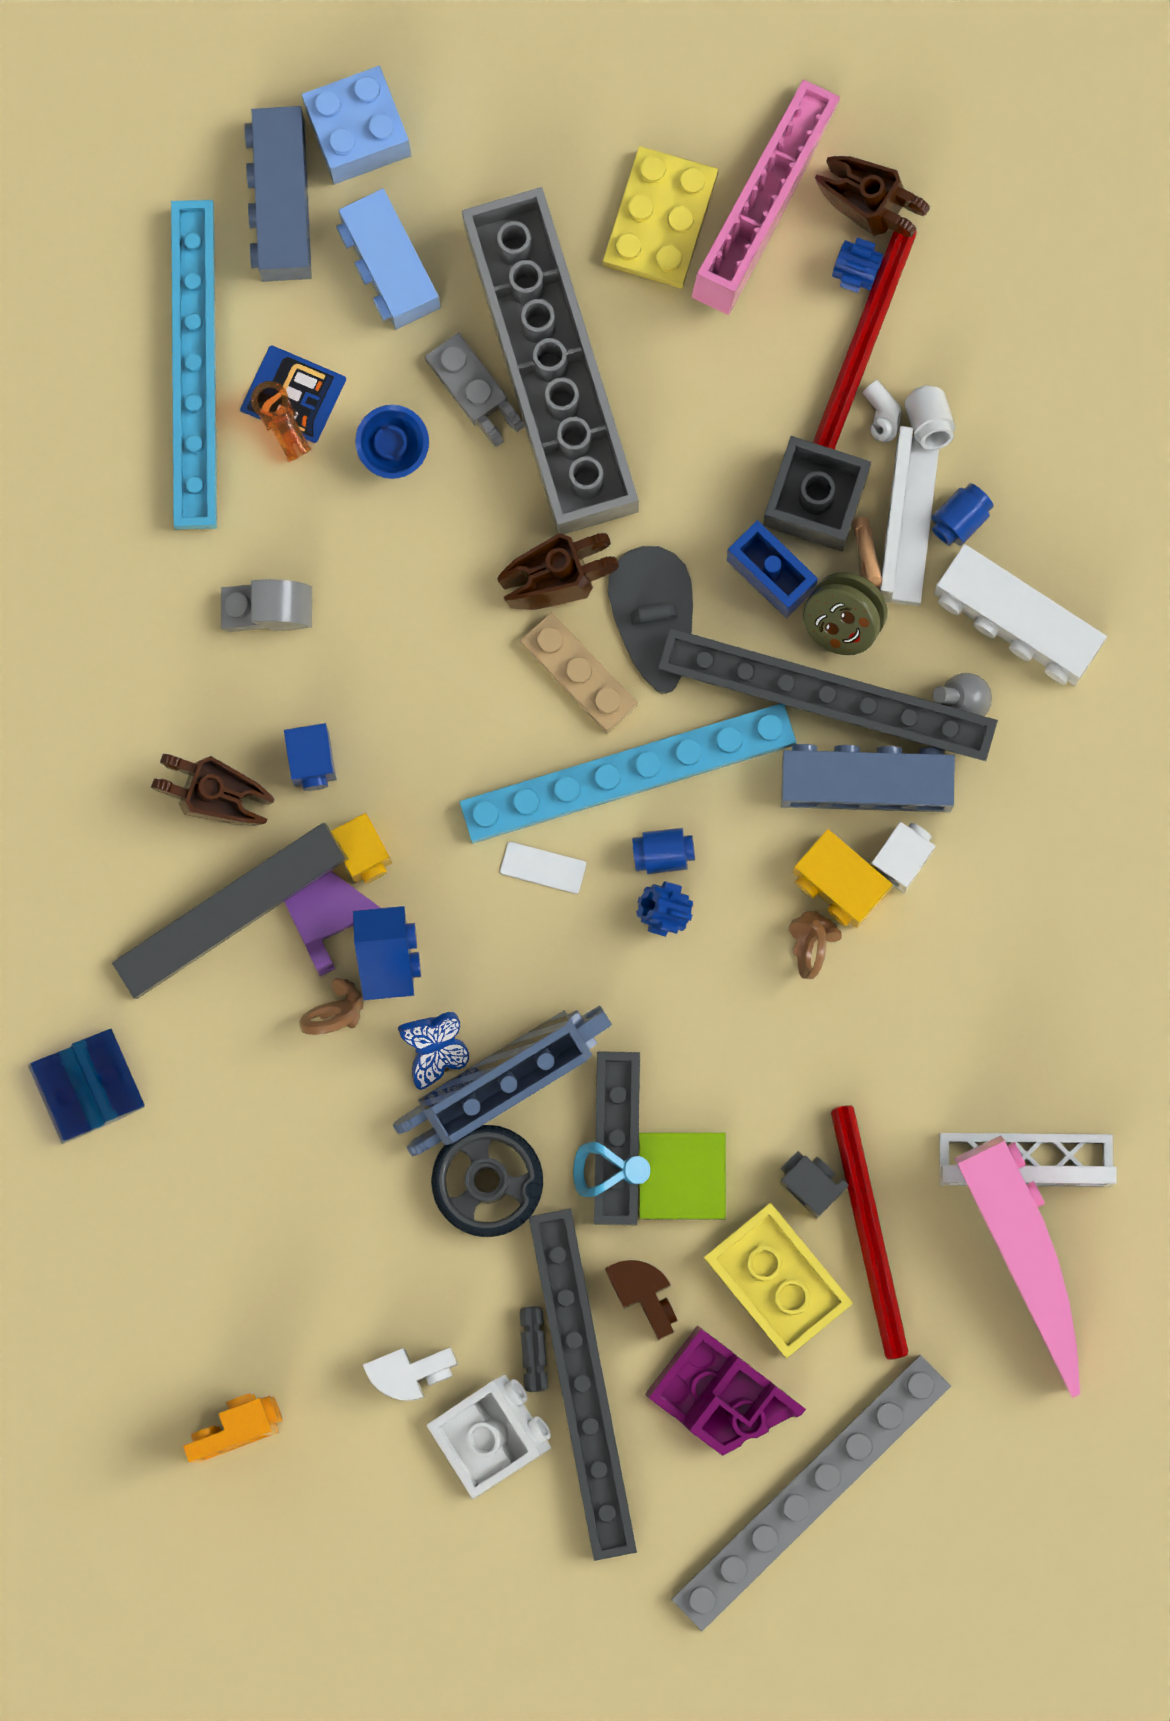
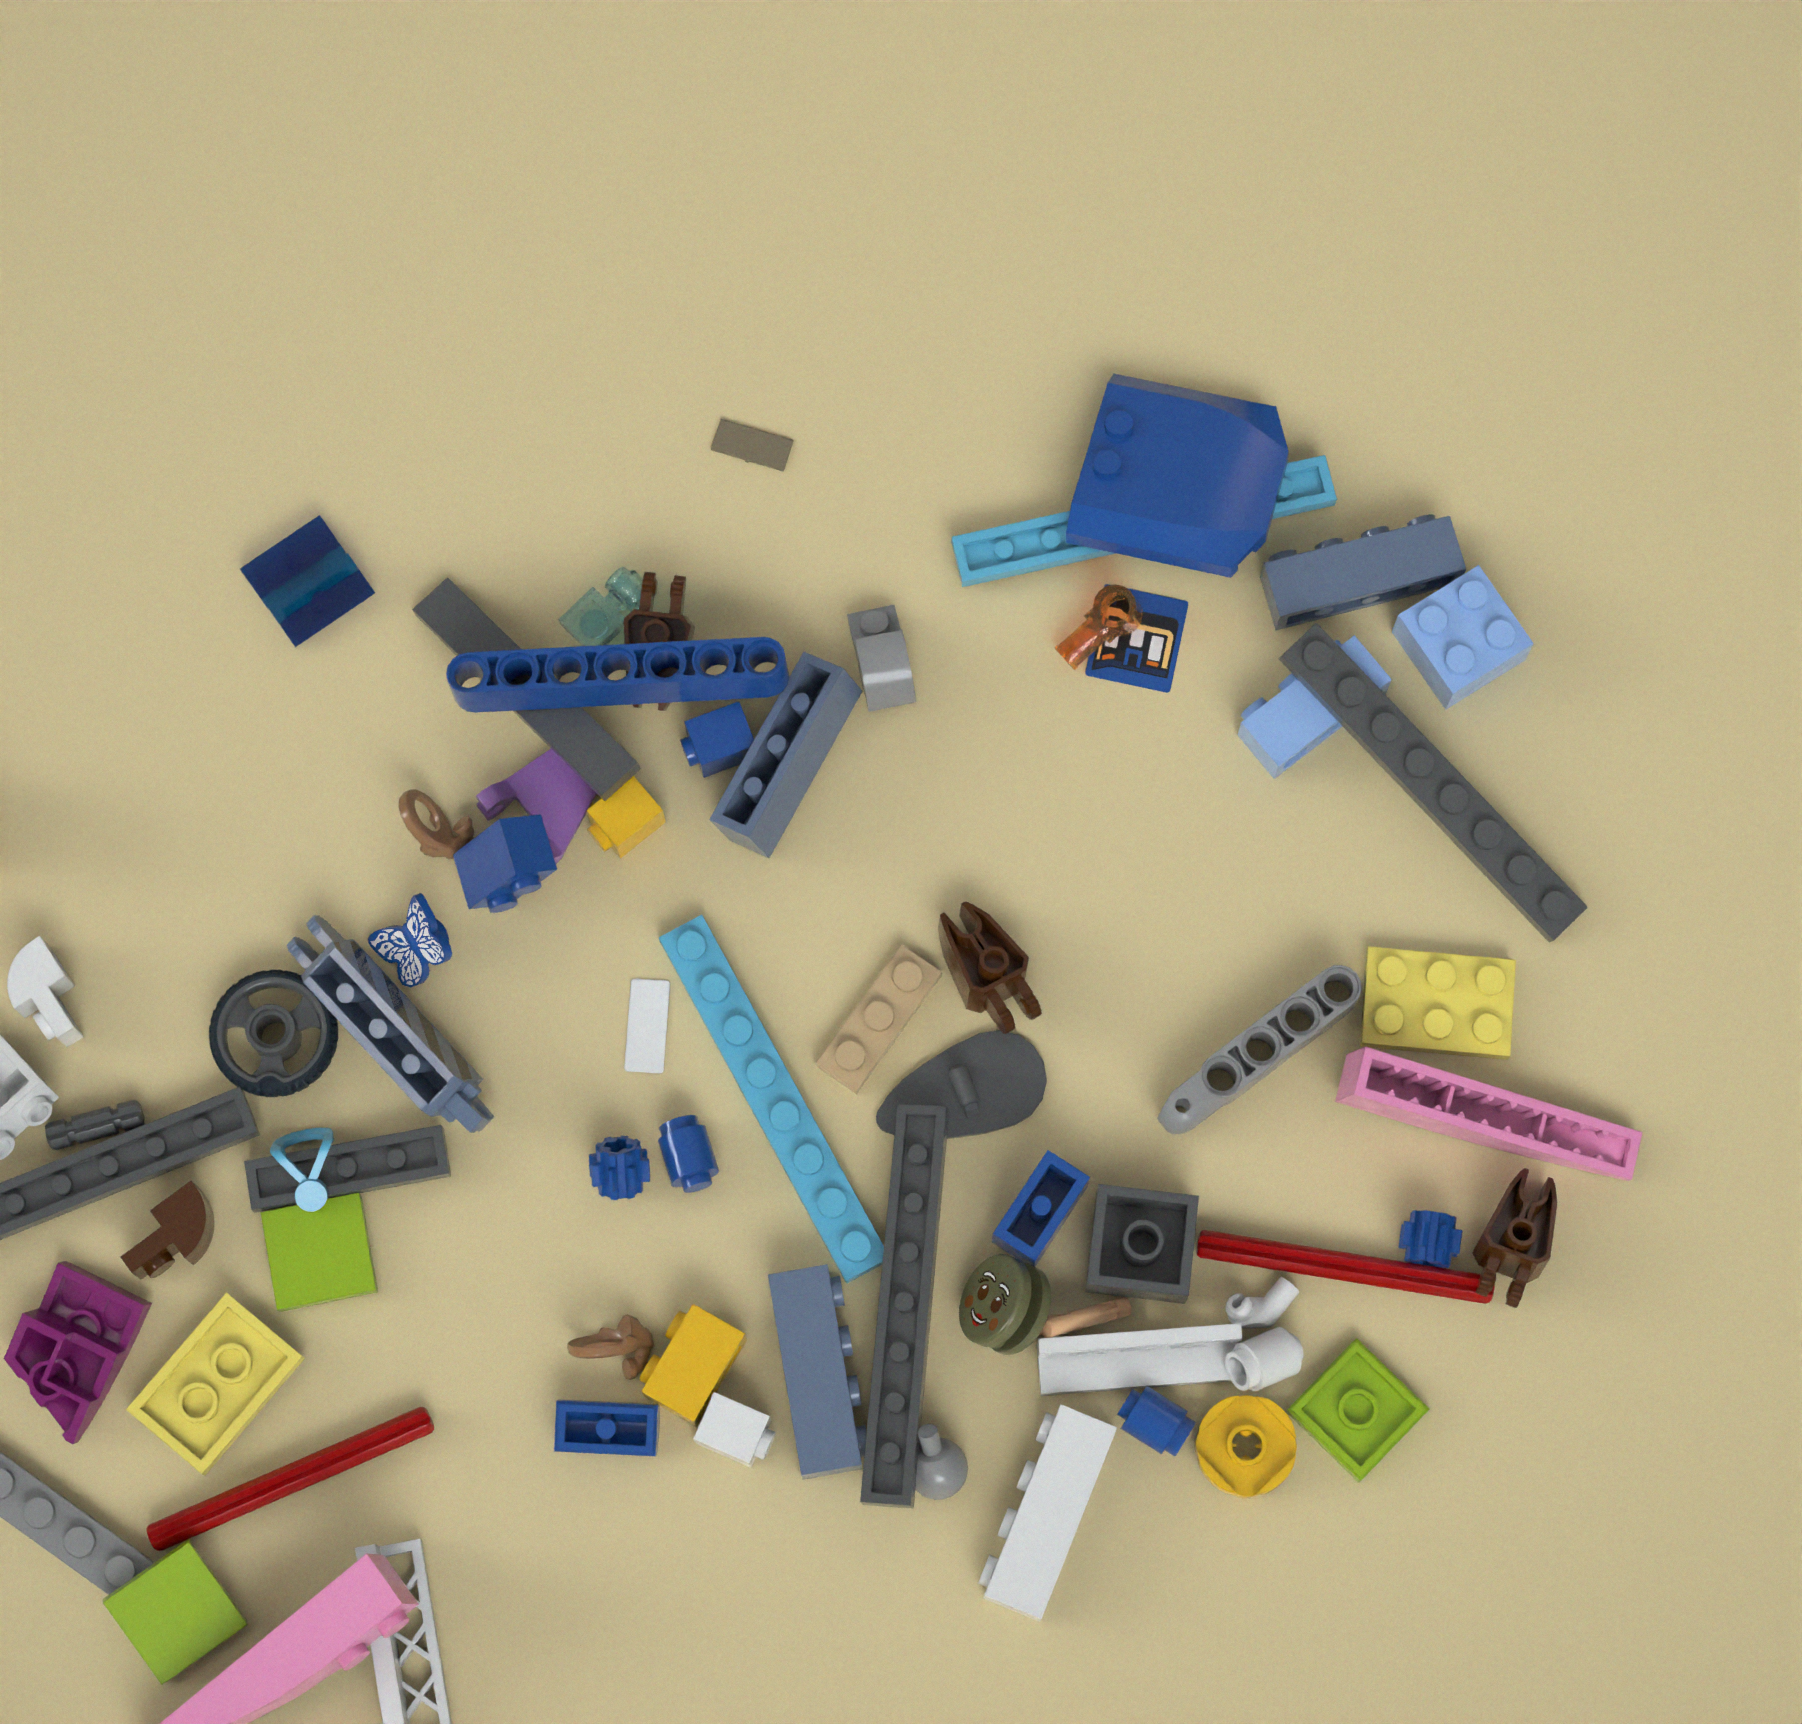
camera: 75 degrees right, 5 degrees down
(47, 681) = (752, 445): none -> dark tan window
(164, 322) = (1179, 476): none -> blue wedge
(178, 840) = (597, 619): none -> clear light blue plate
(249, 843) = (598, 662): none -> blue beam
(337, 700) = (786, 754): none -> sand blue brick
(392, 441) = (1097, 751): blue helmet -> none
(472, 386) = (1187, 831): light grey hinge -> none
(477, 176) = (1433, 783): none -> dark grey plate
(550, 361) = (1231, 907): light grey brick -> none
(699, 424) = (1202, 1100): none -> light grey piece
(811, 1183) = (332, 1398): dark grey brick -> none
(880, 960) = (607, 1427): none -> blue brick
(963, 1344) = (175, 1611): none -> lime tile
(971, 444) = (1246, 1416): none -> yellow plate
(982, 356) = (1357, 1410): none -> lime tile

